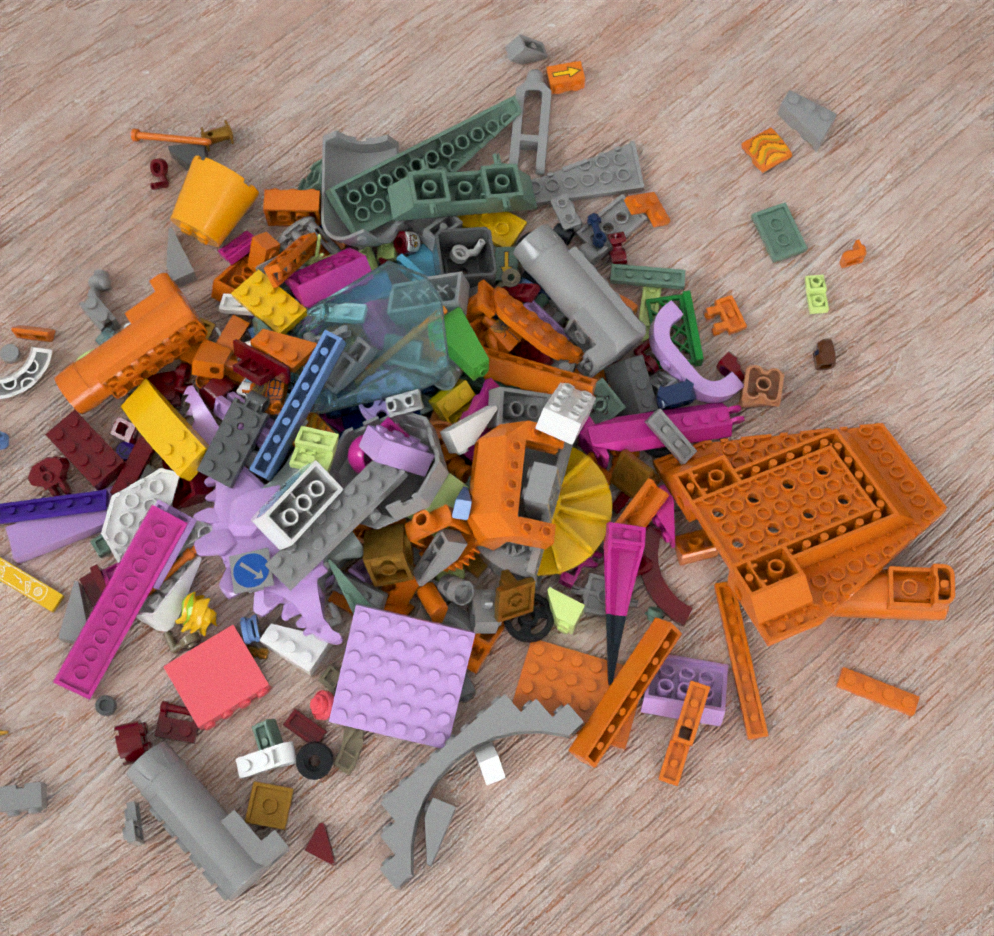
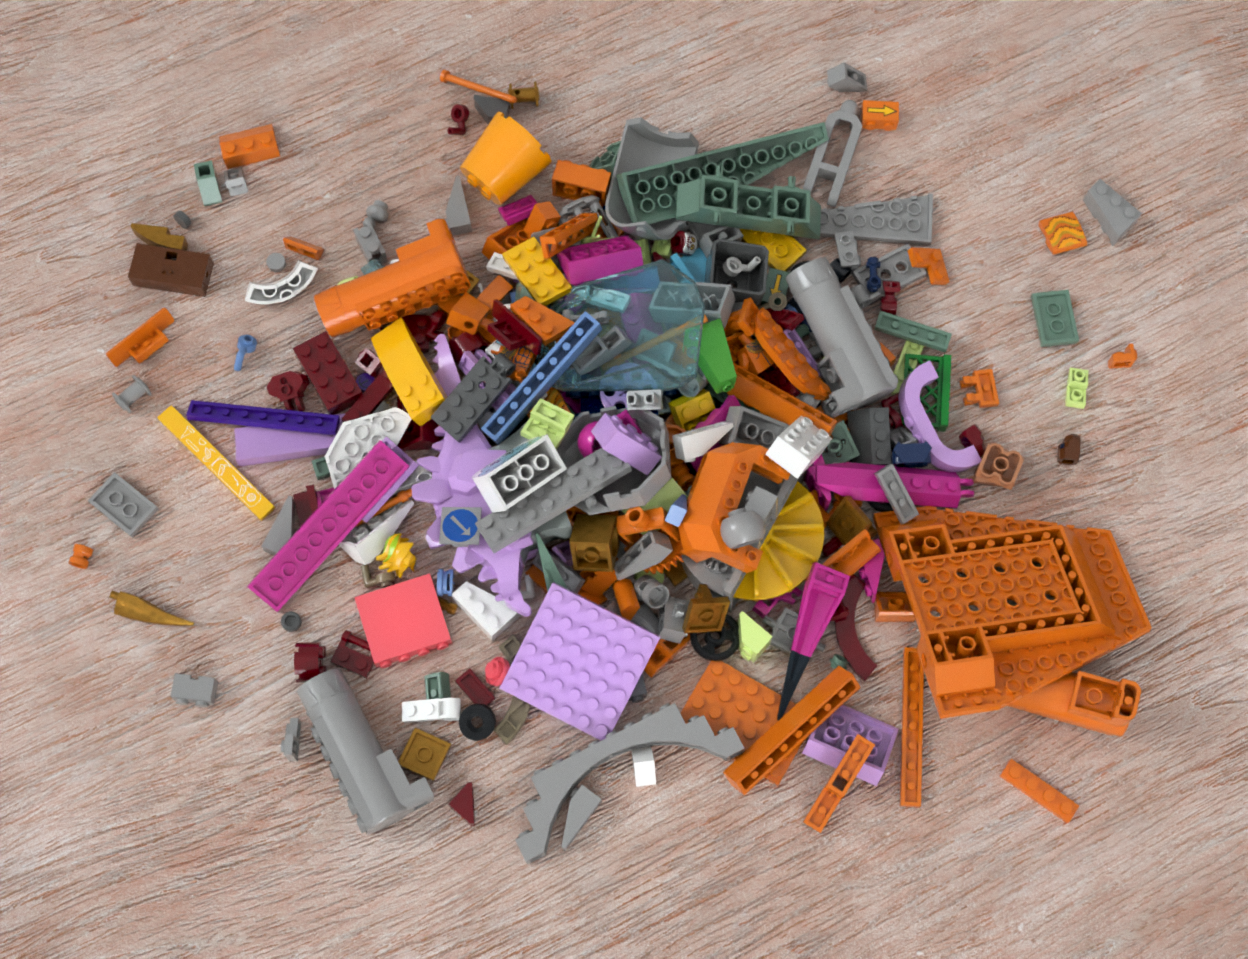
camera: 10 degrees right, 0 degrees up
(530, 507) = (742, 528): none -> light grey wheel

